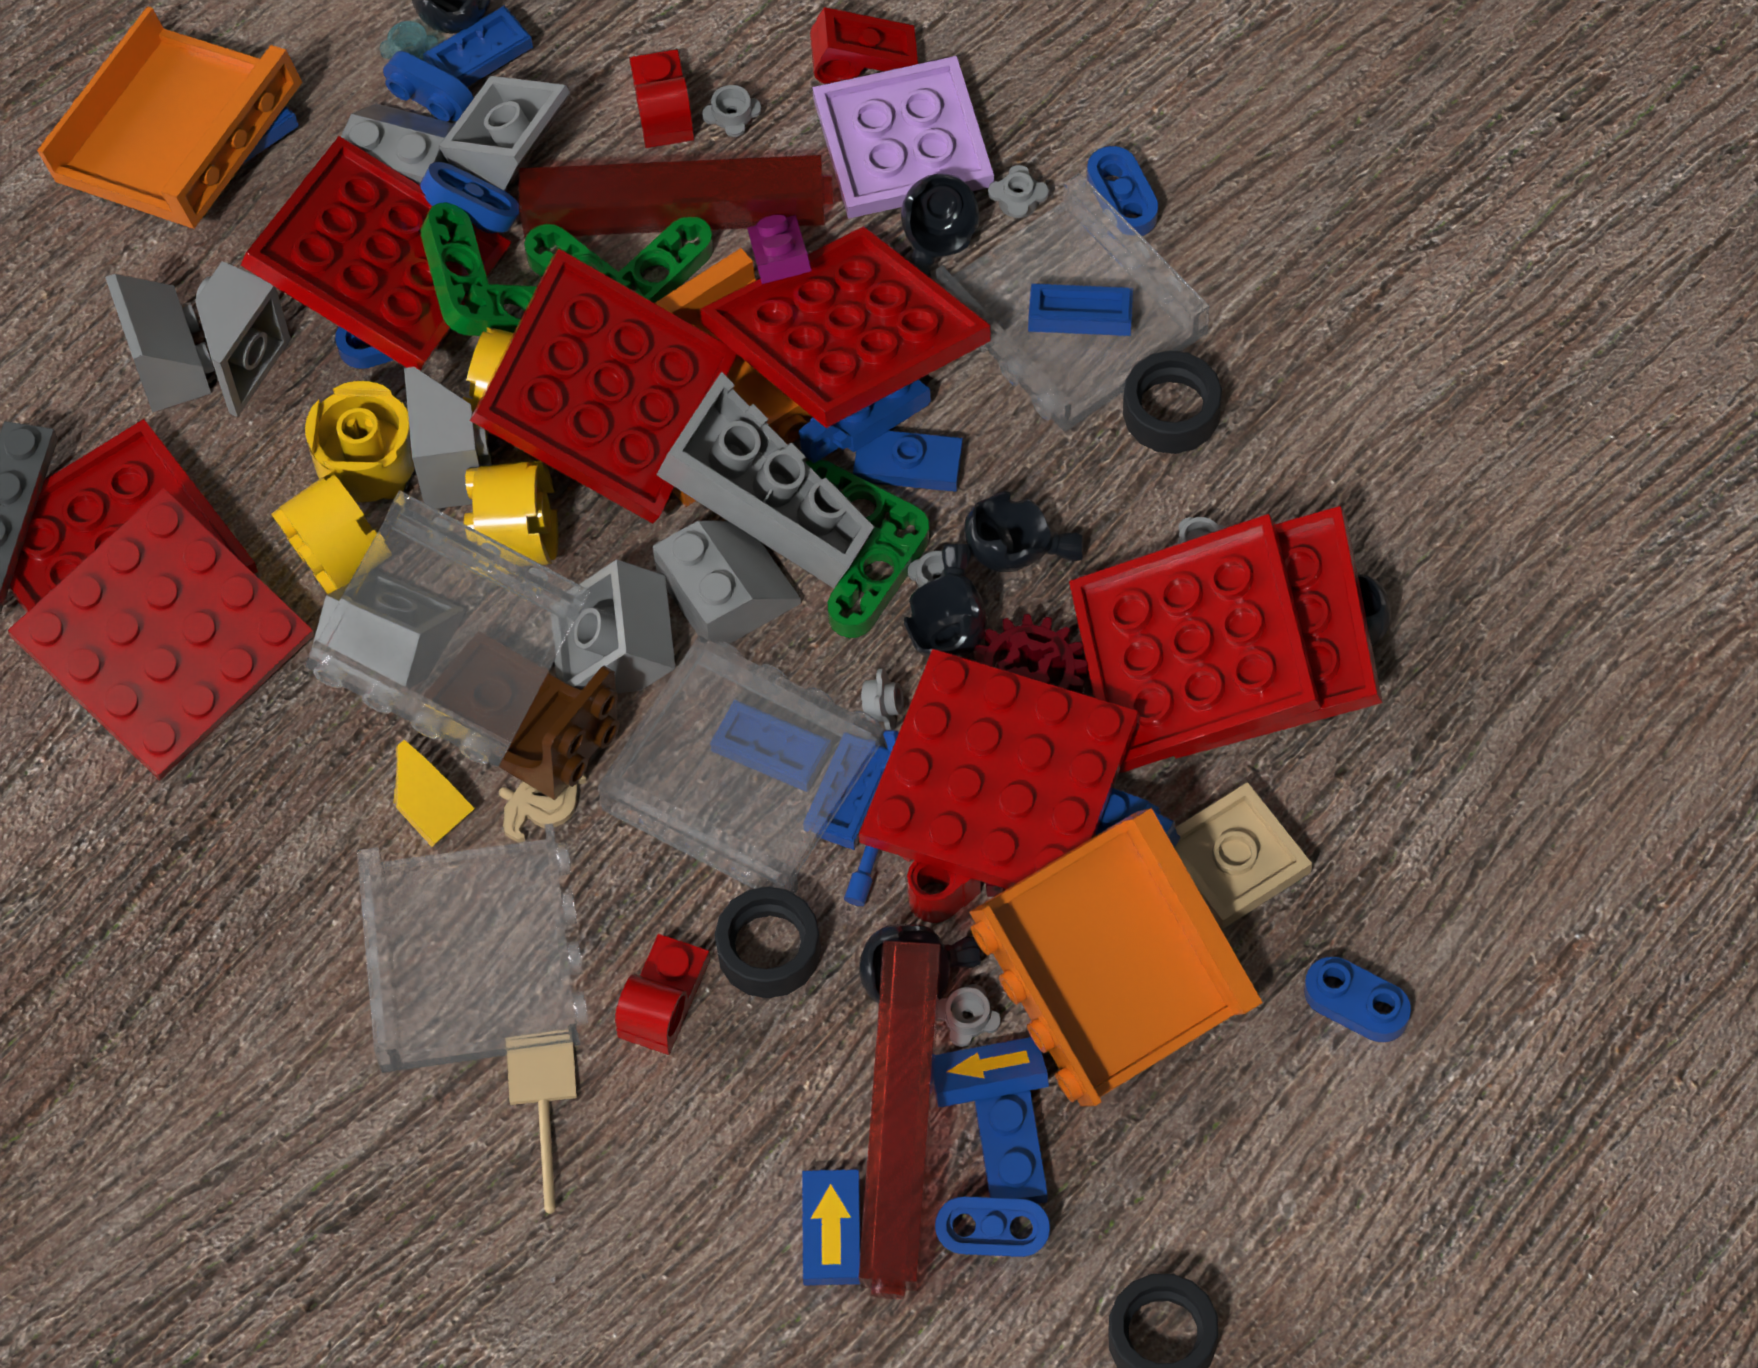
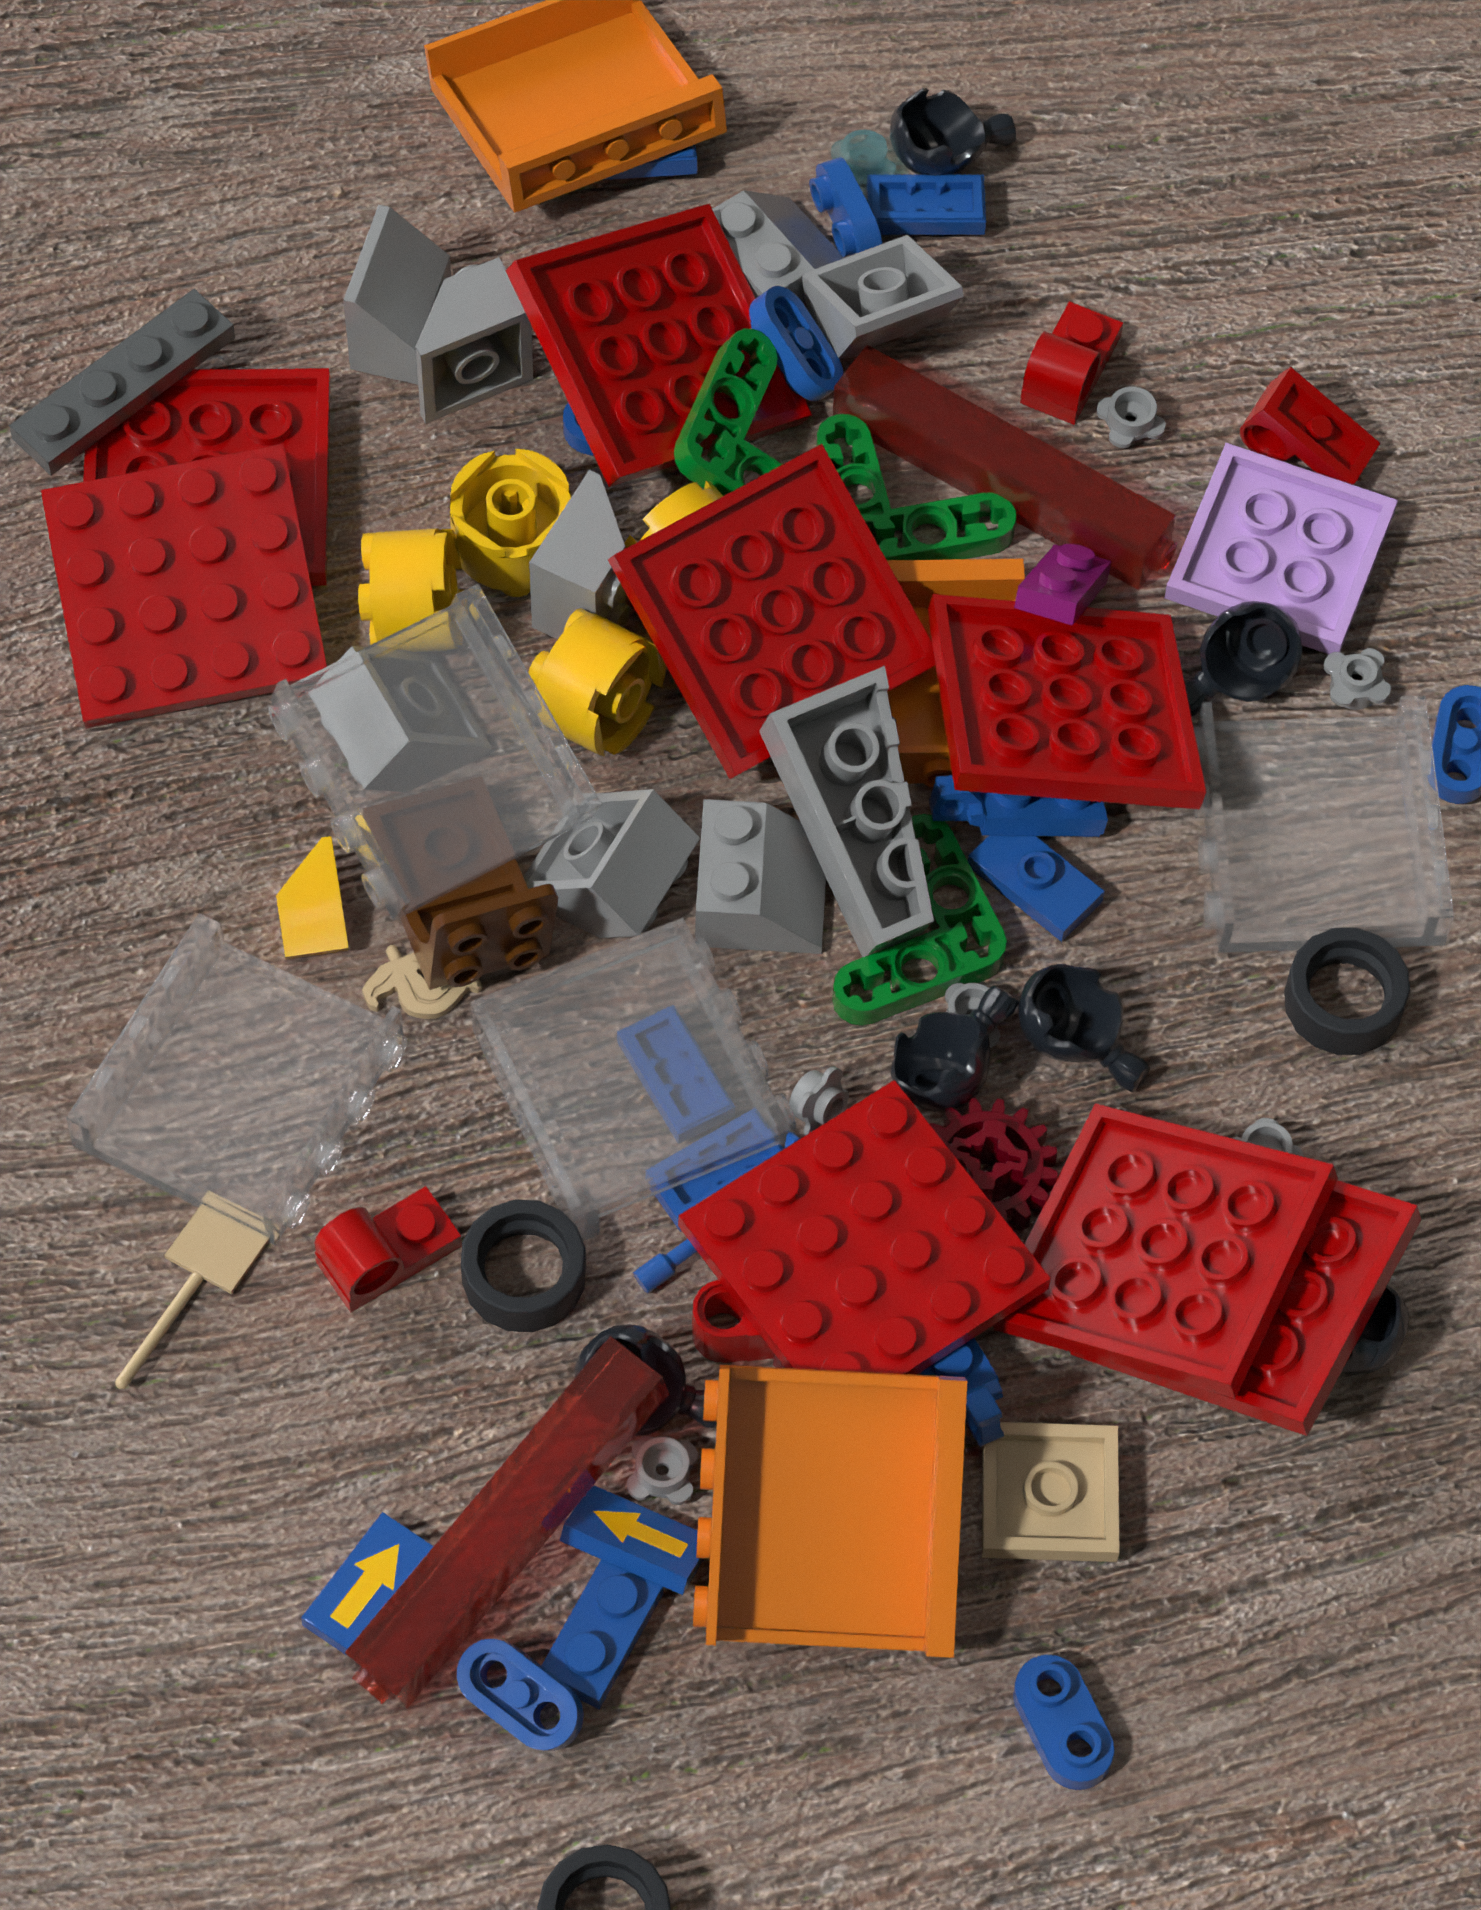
camera: 30 degrees right, 0 degrees up
(1080, 309) = (1324, 837): blue tile -> none

